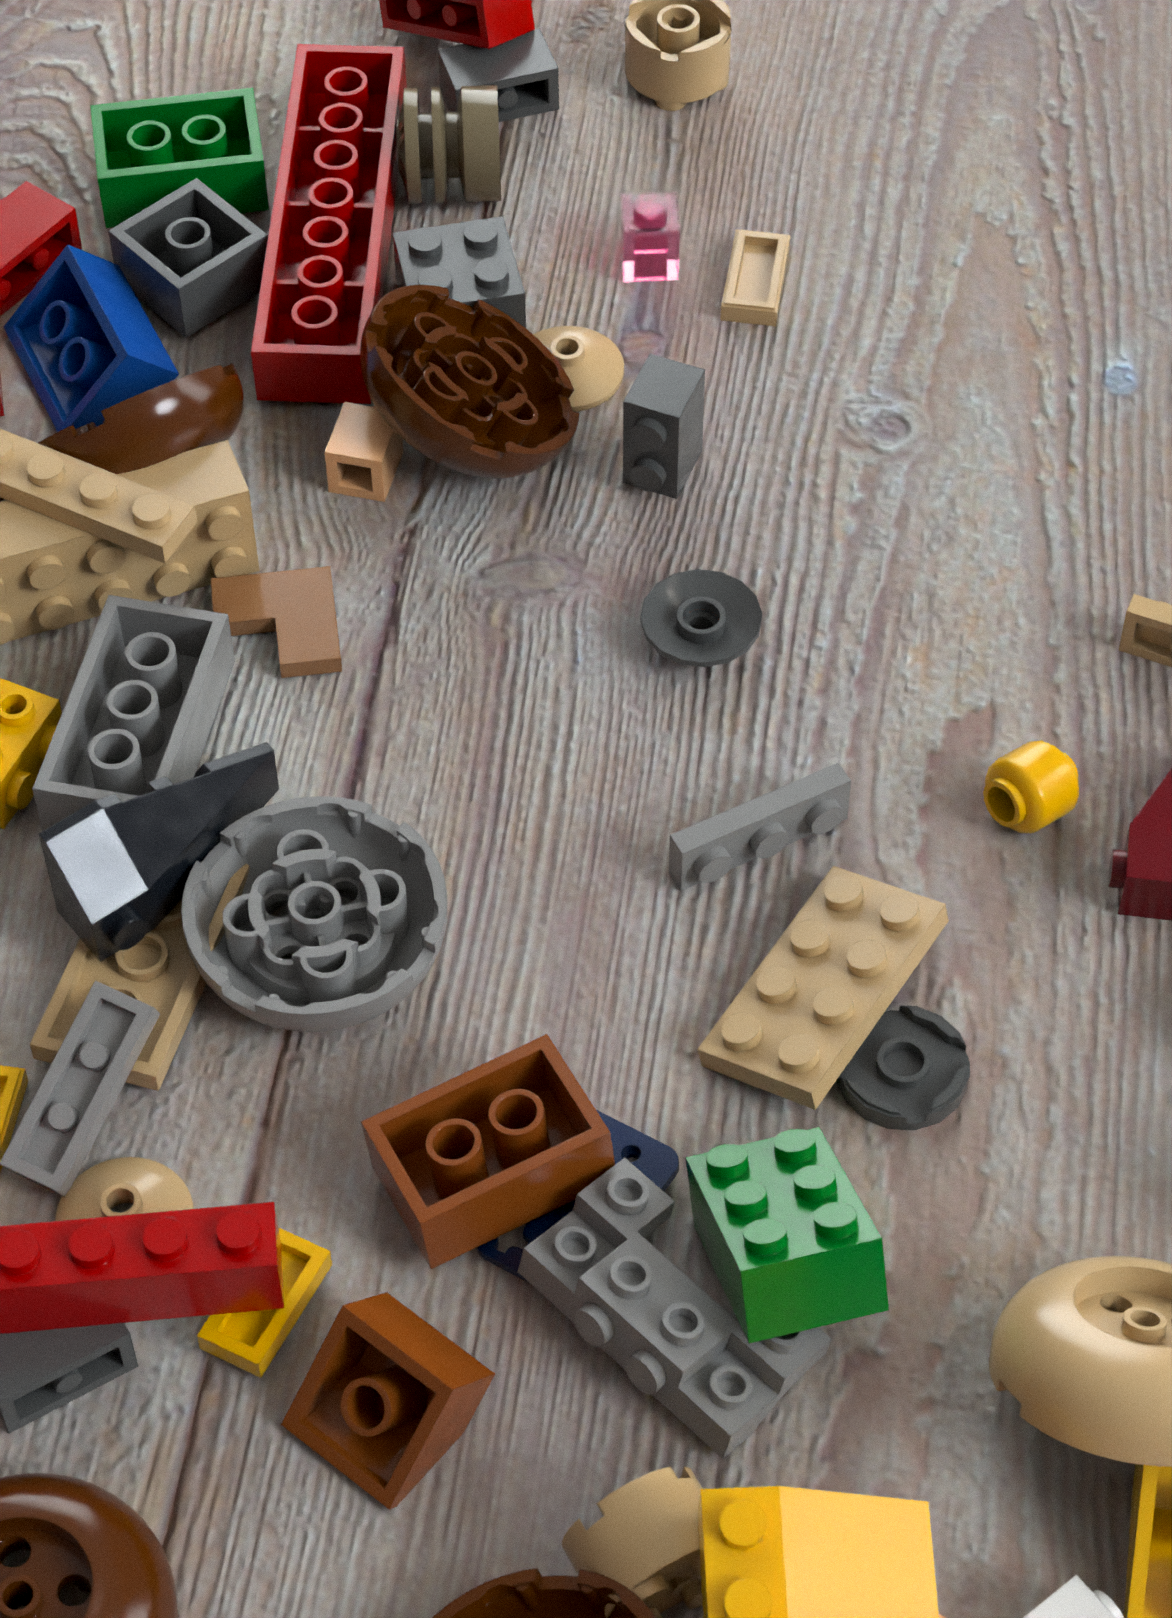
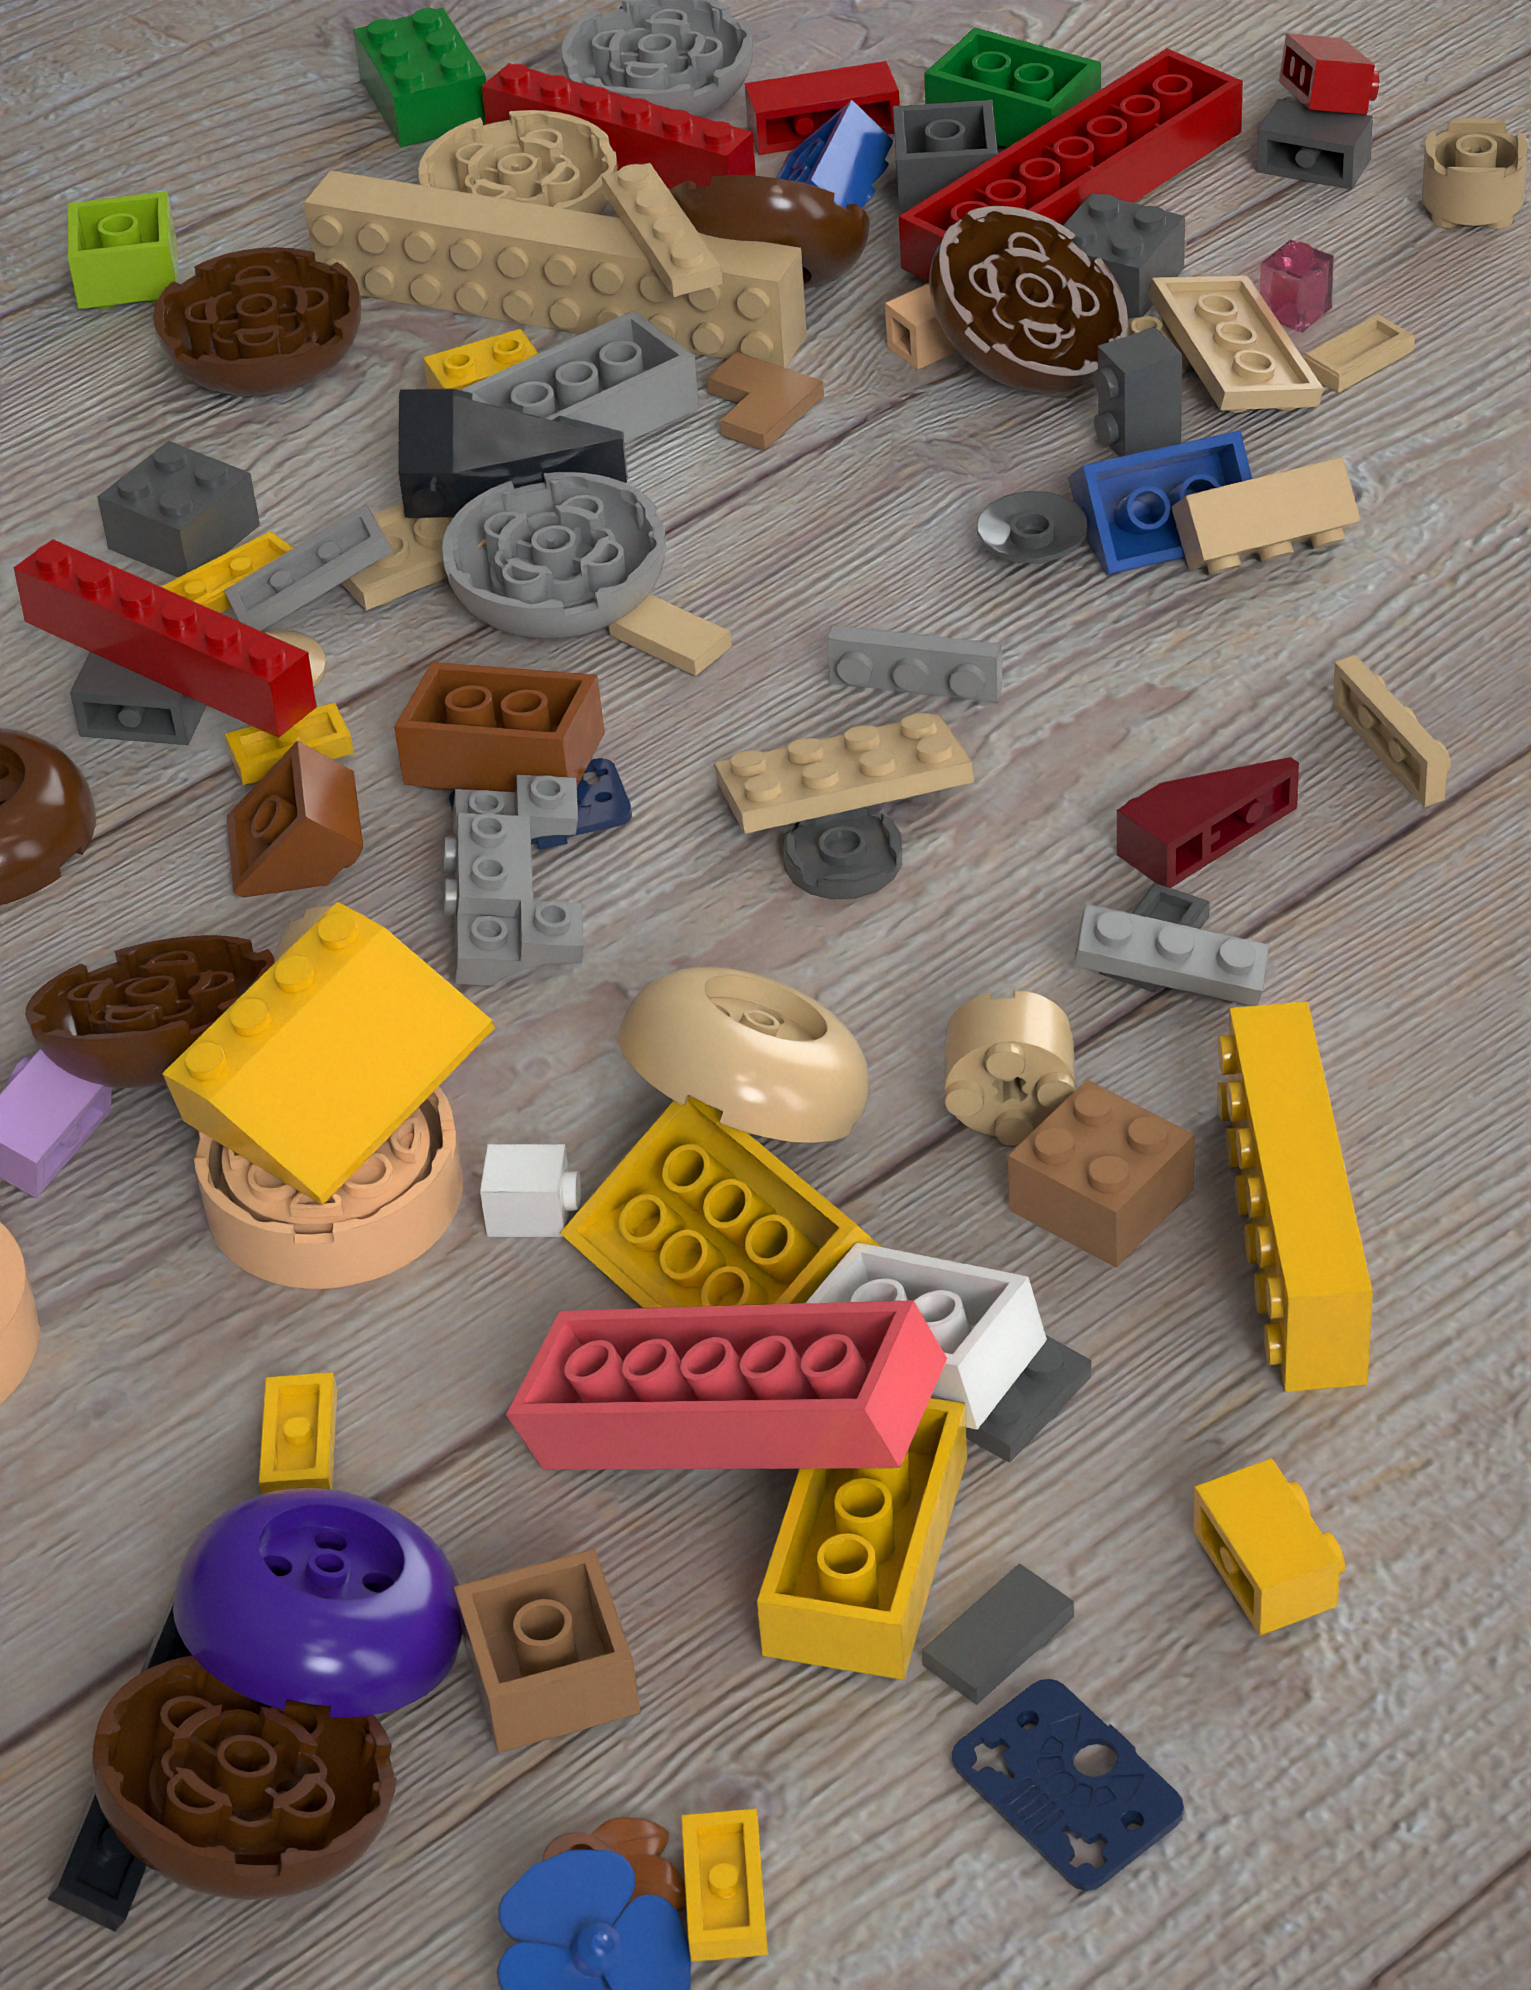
camera: 45 degrees right, 10 degrees down
(451, 144) = (1210, 161): dark tan wheel -> none
(497, 930) = (672, 635): none -> tan tile
(647, 314) = (1235, 343): none -> tan plate
(786, 1234) = (614, 862): green brick -> none
(789, 522) = (1133, 497): none -> blue slope
(893, 492) = (1266, 516): none -> tan brick
(1031, 787) = (1134, 737): yellow head -> none

